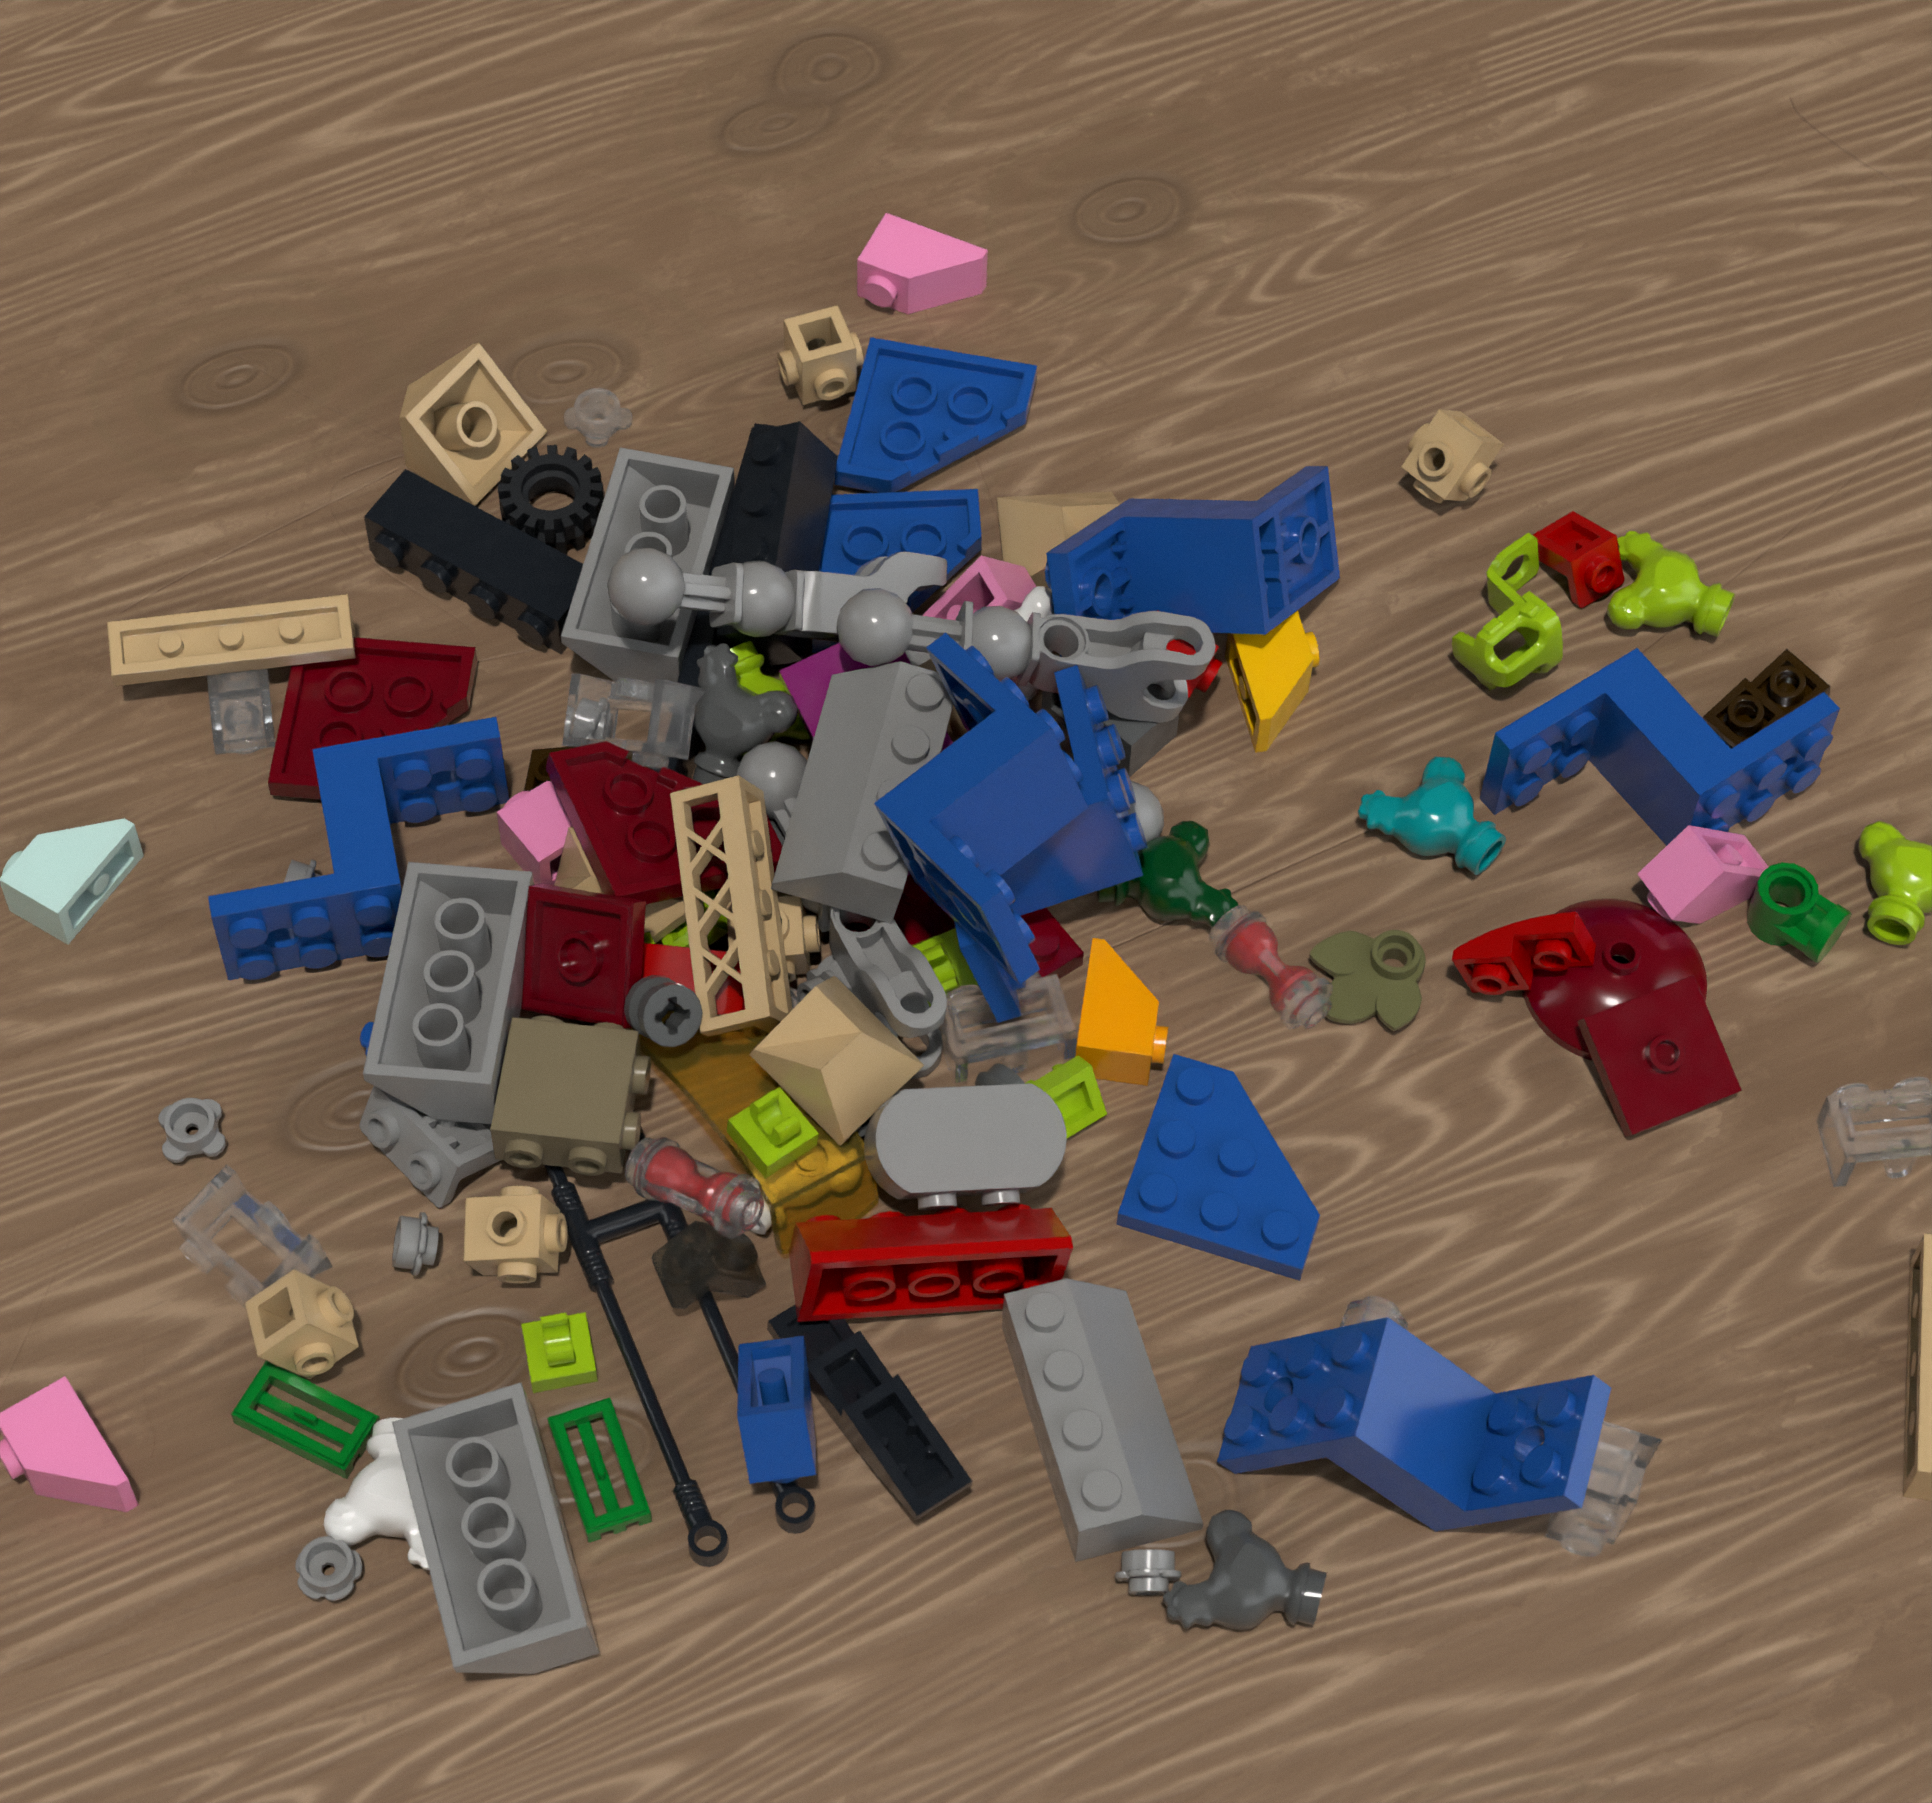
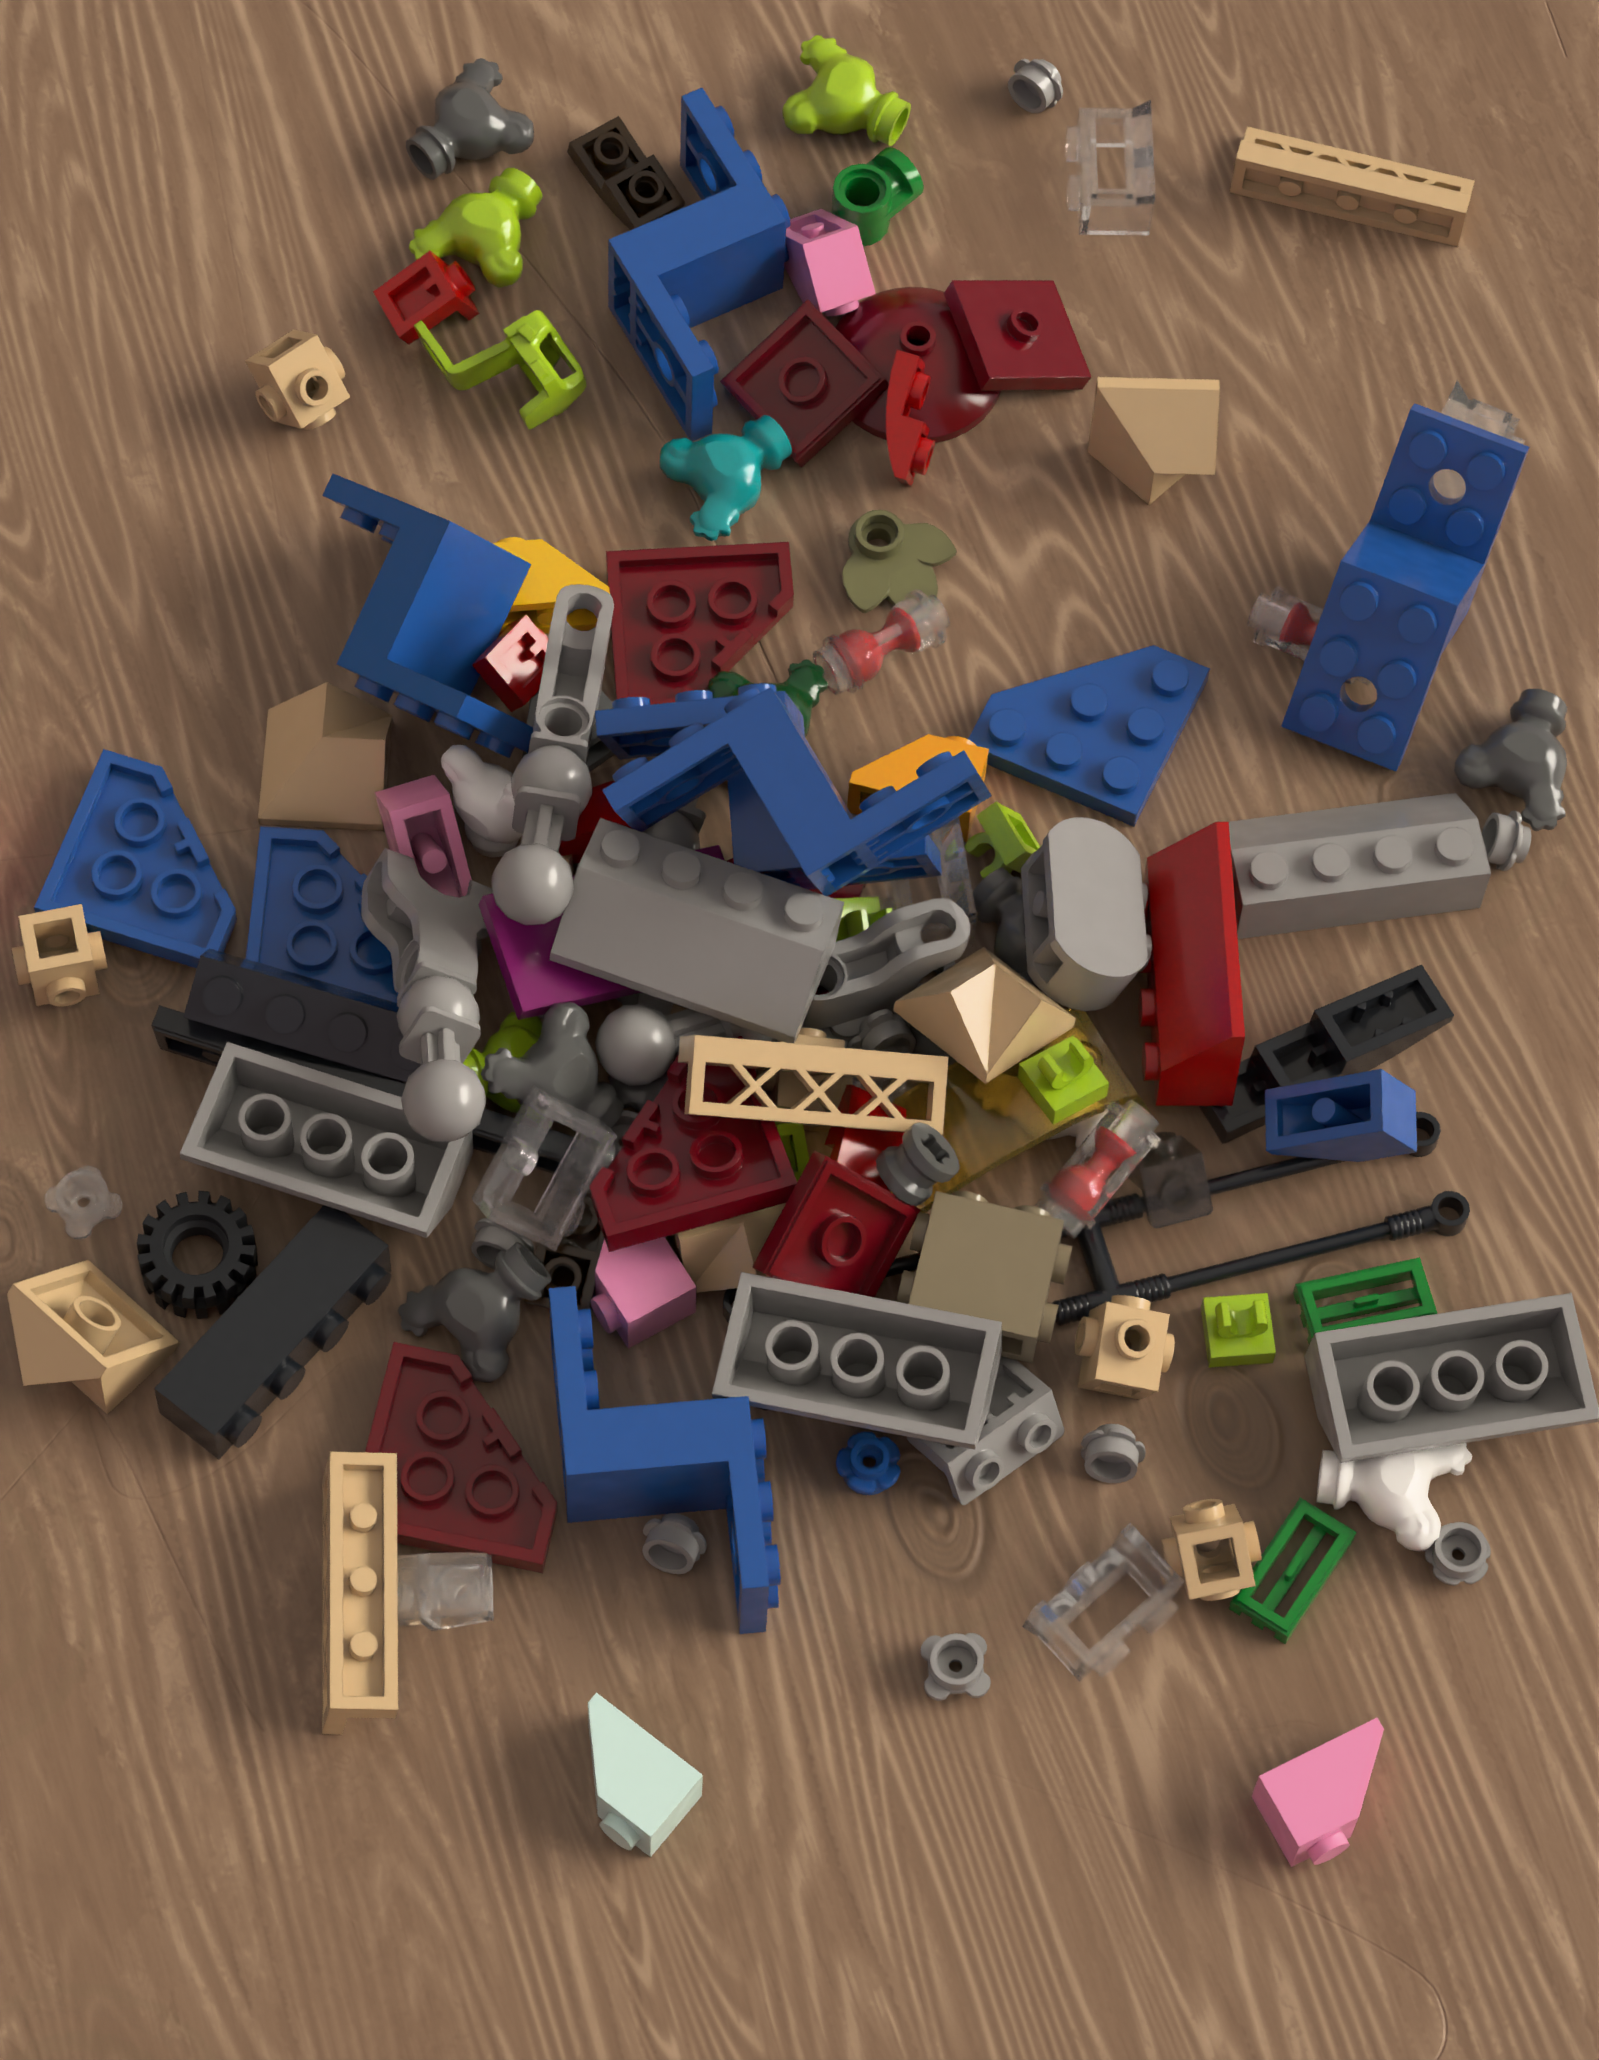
camera: 85 degrees left, 5 degrees up
(522, 709) = (479, 1308): none -> dark grey animal
(1267, 803) = (691, 612): none -> dark red plate
(1556, 869) = (805, 381): none -> dark red plate
(1558, 1185) = (1154, 430): none -> tan slope
(1786, 563) = (469, 124): none -> dark grey animal

